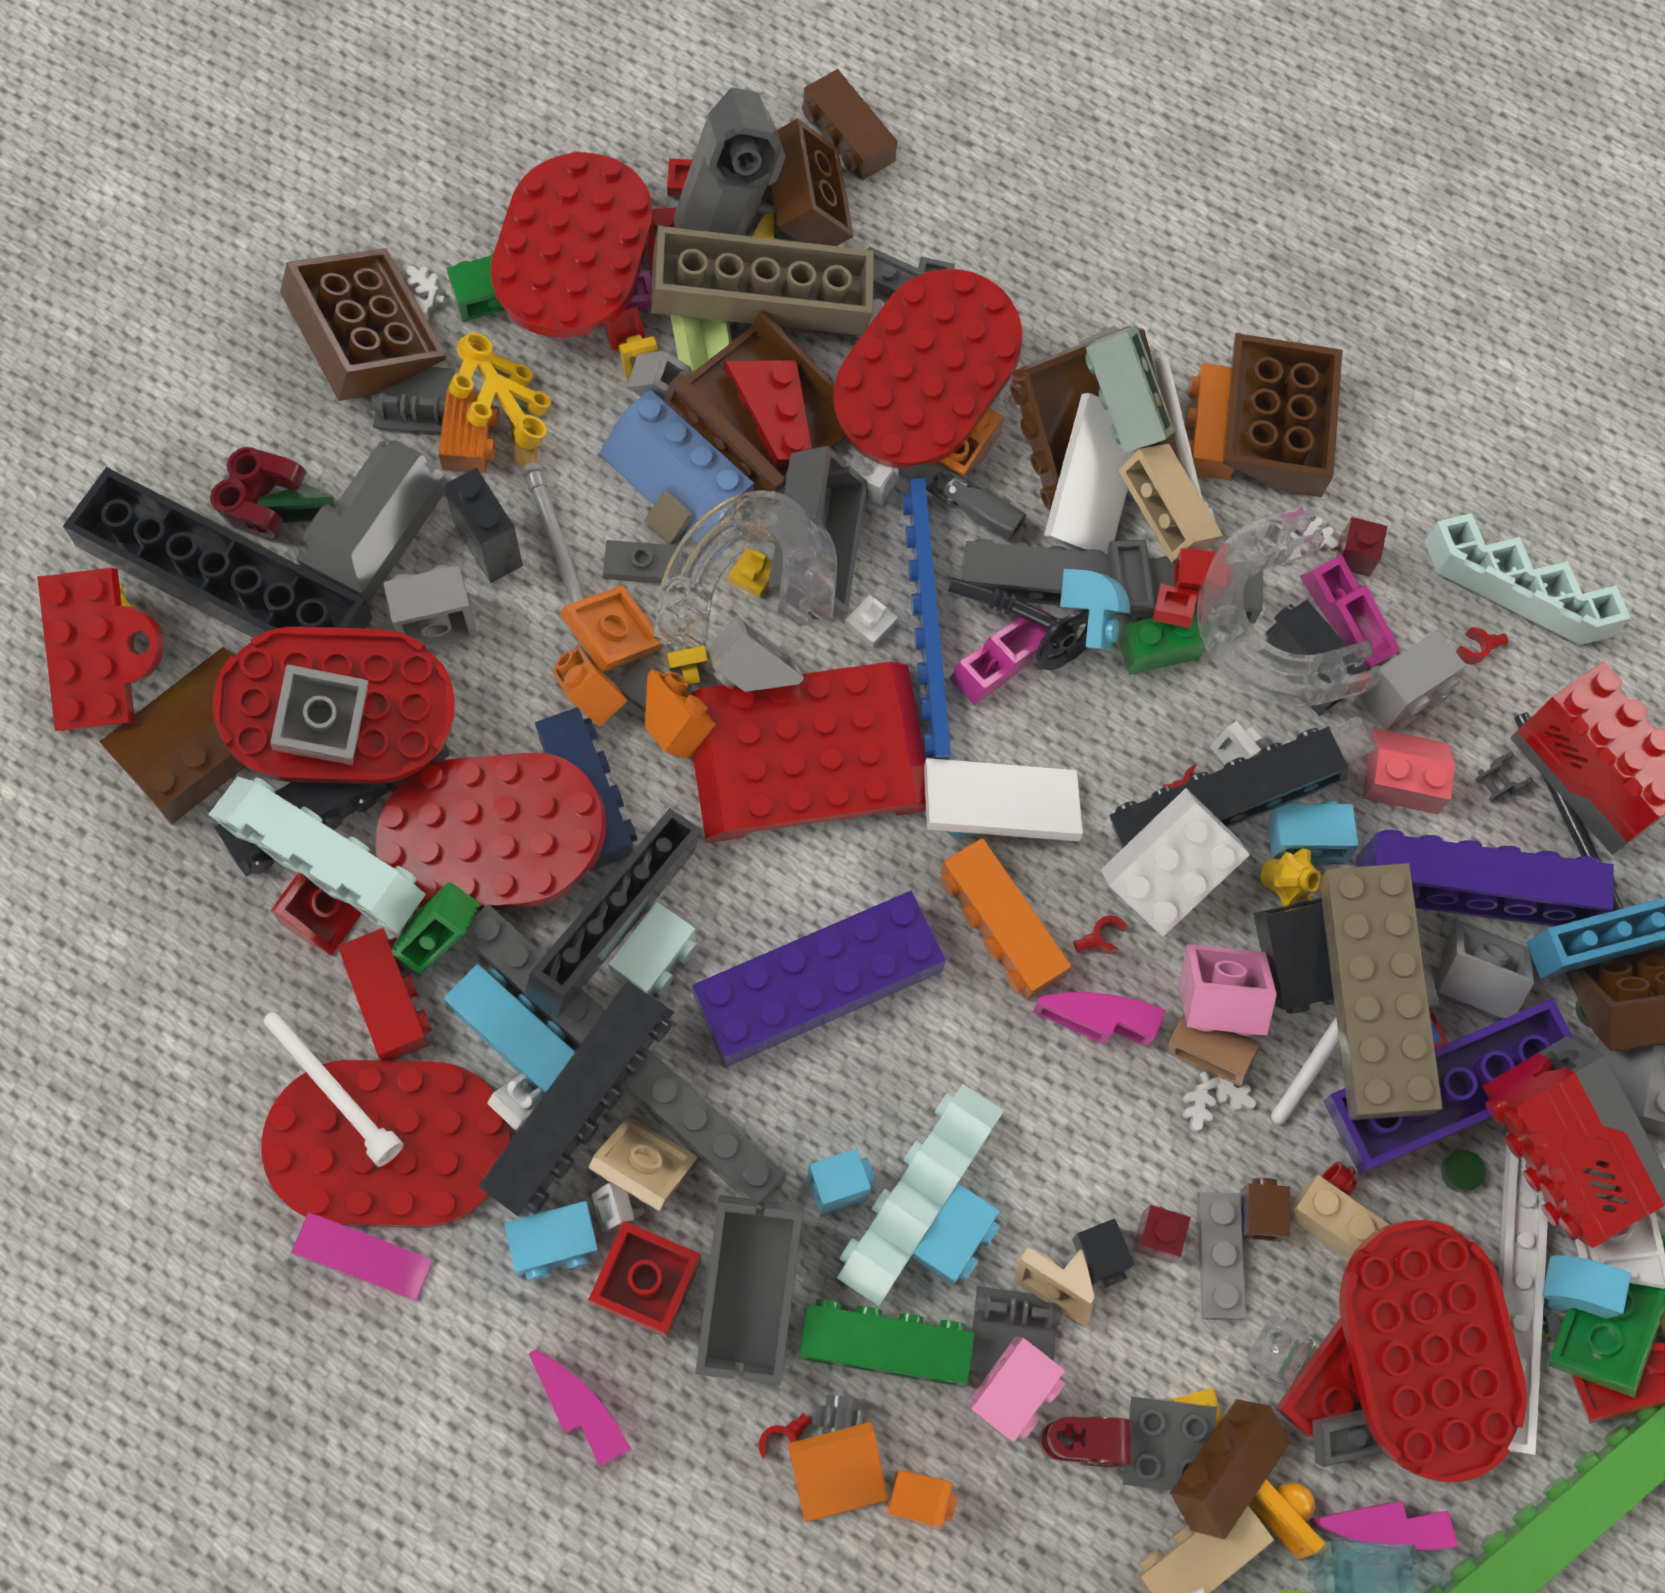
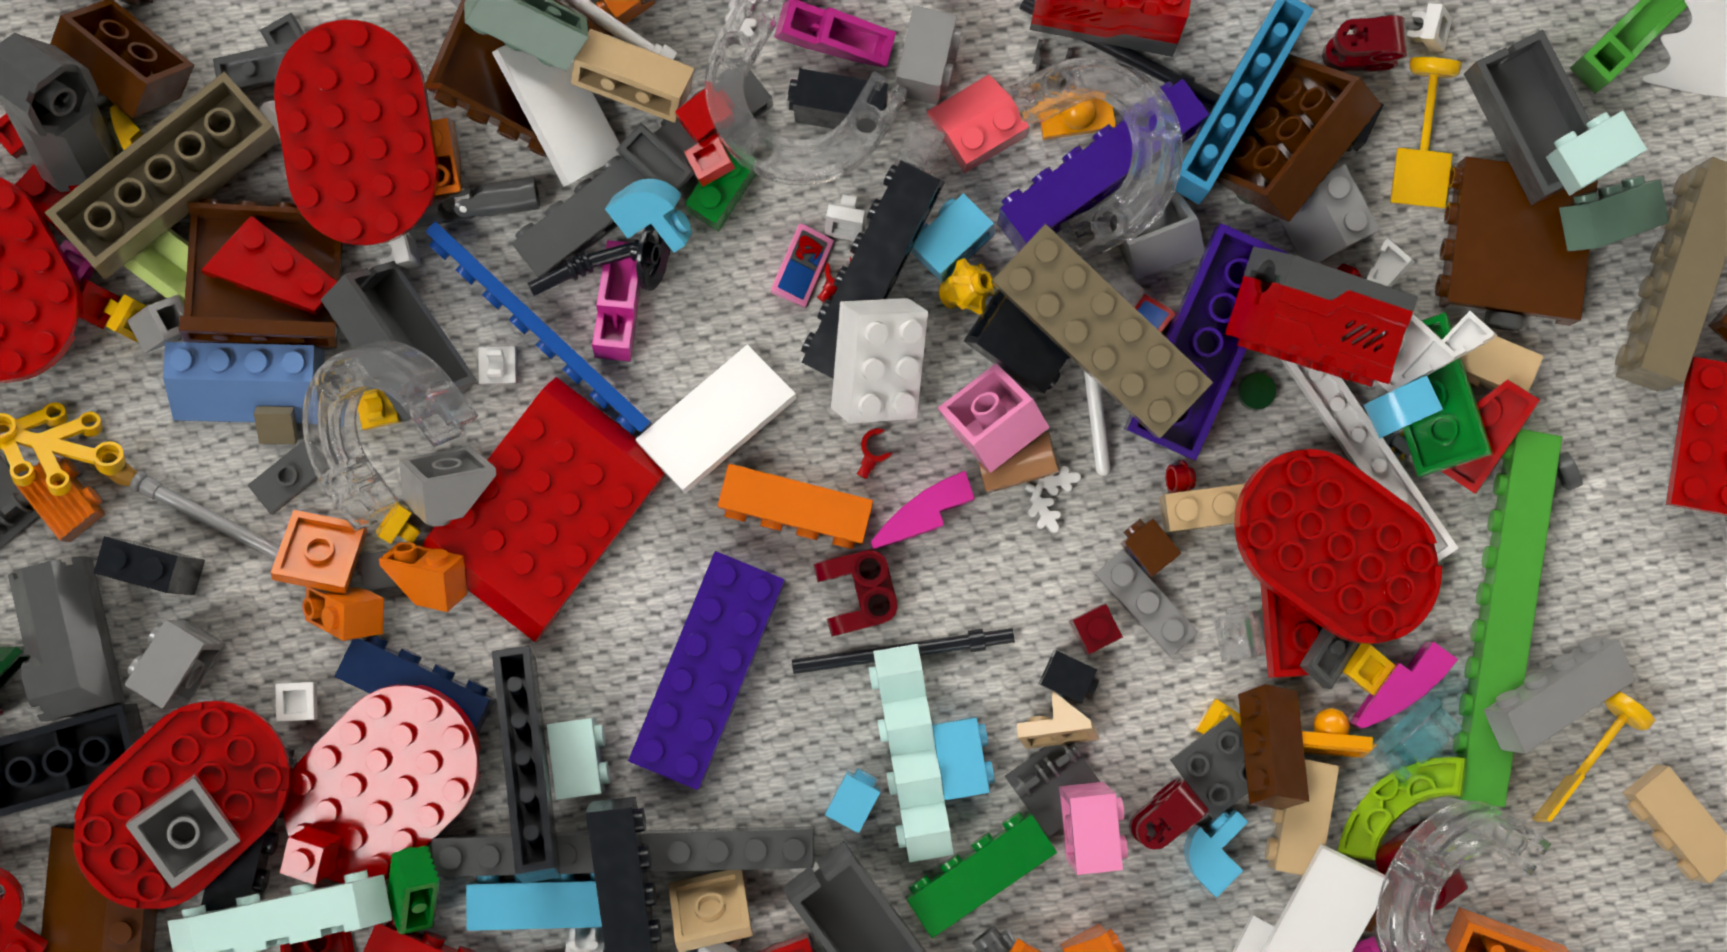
camera: 35 degrees left, 15 degrees up
(387, 830) = (310, 855): none -> red brick
(488, 717) = (296, 701): none -> white tile
(1003, 1002) = (864, 588): none -> dark red piece
(1051, 1154) = (975, 640): none -> black bar
(1088, 1512) = (1205, 853): none -> medium azure brick
(1172, 751) = (802, 265): none -> slope
(1369, 1481) = (1368, 668): none -> yellow tile
(1491, 826) = (1079, 120): none -> light orange tile
(1543, 894) = (1155, 153): none -> clear piece

